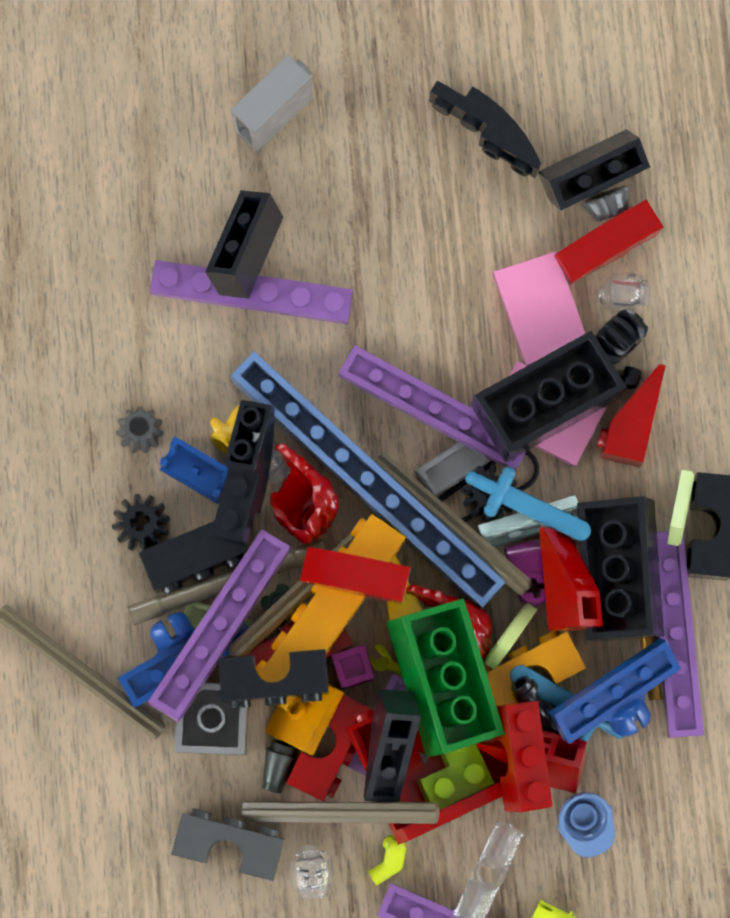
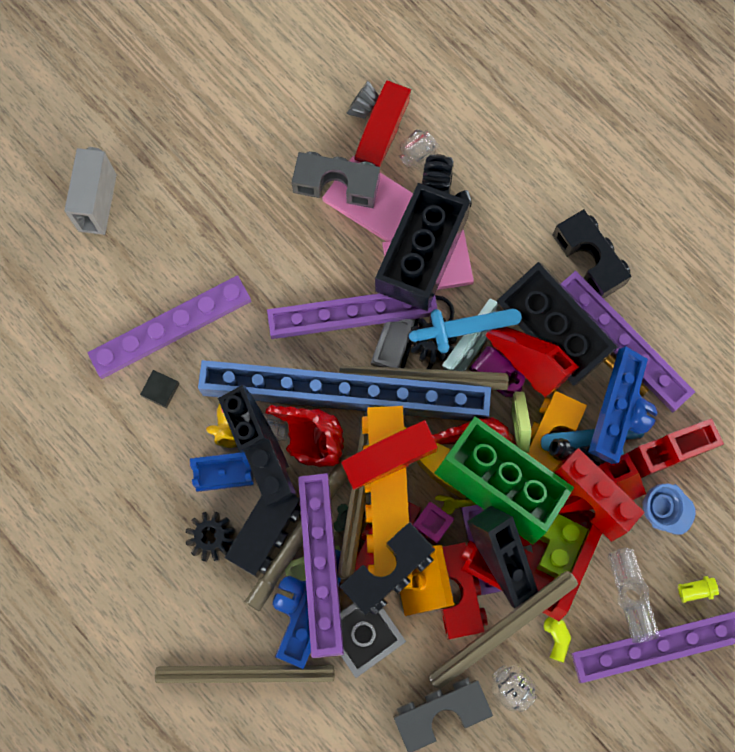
camera: 35 degrees left, 5 degrees down
(139, 430) = (161, 475): dark grey piece -> none
(197, 346) = (159, 389): none -> pearl dark grey tile
(244, 244) = (141, 295): black brick -> none
(278, 765) = (432, 629): pearl dark grey cone -> none
(500, 133) = (257, 105): black slope -> none
(502, 241) = (314, 171): none -> dark grey arch
(594, 169) = (338, 86): black brick -> none
(630, 429) = (490, 231): red slope -> none
(641, 773) = (676, 448): none -> red slope
(681, 508) = (564, 256): yellowish green tile -> none

